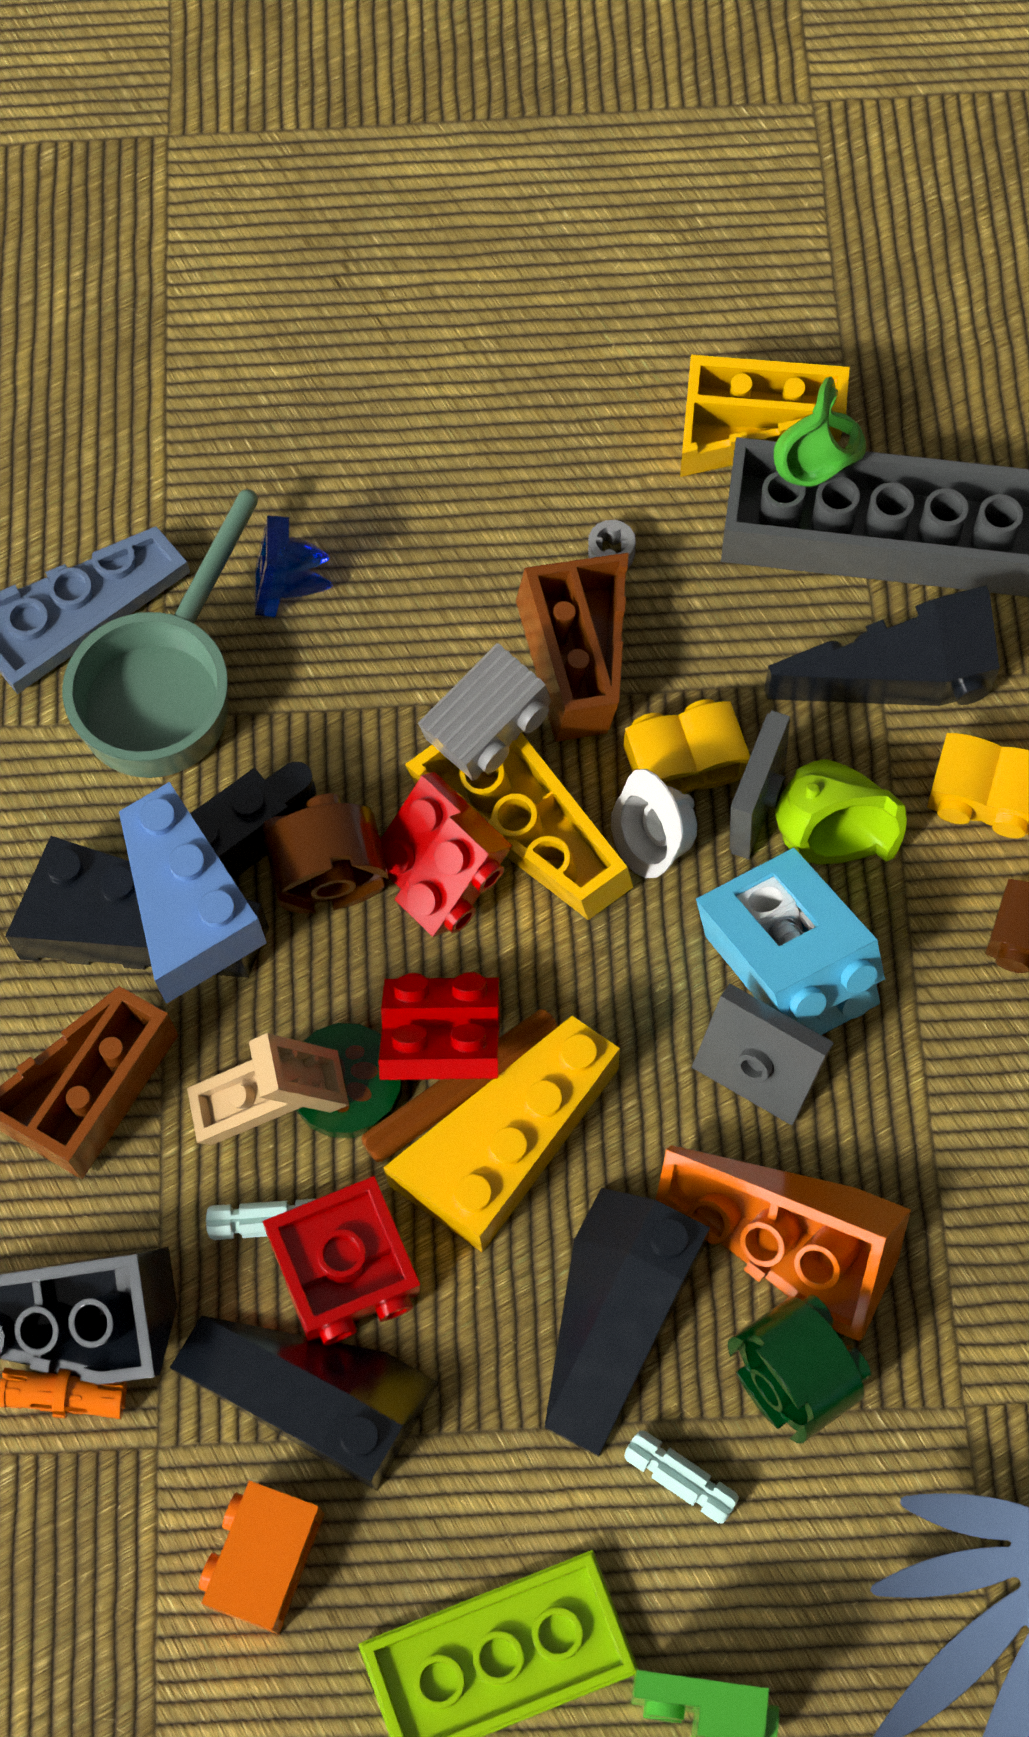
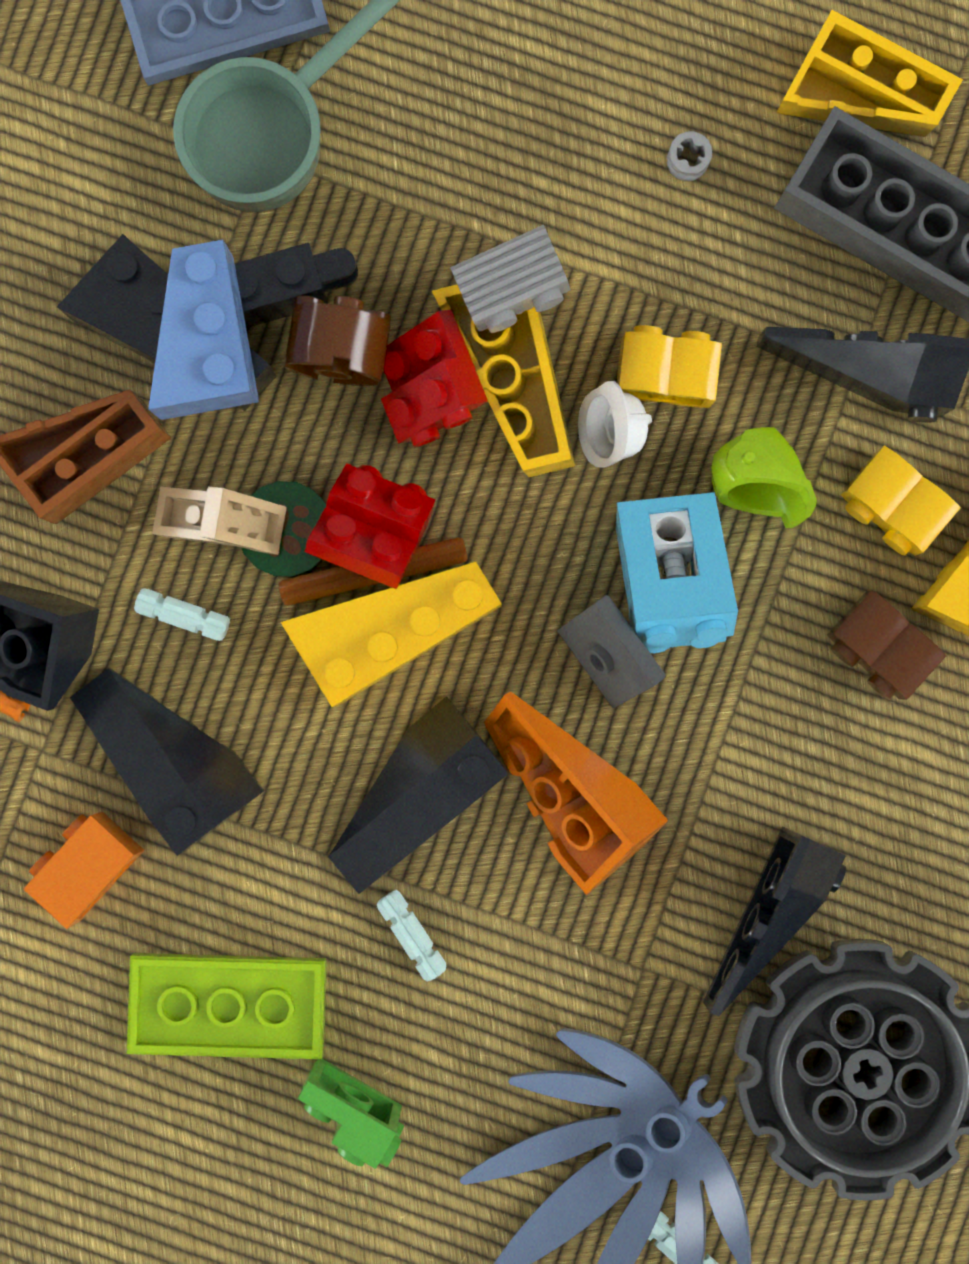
camera: 20 degrees right, 20 degrees up
(284, 567) = (407, 67): clear blue tile -> none
(343, 1261) = (224, 676): red plate -> none
(575, 639) = (620, 231): dark orange wedge -> none
(760, 784) = (713, 428): dark grey plate -> none
(799, 1367) = (530, 902): dark green brick -> none
(808, 451) = (887, 149): bright green piece -> none

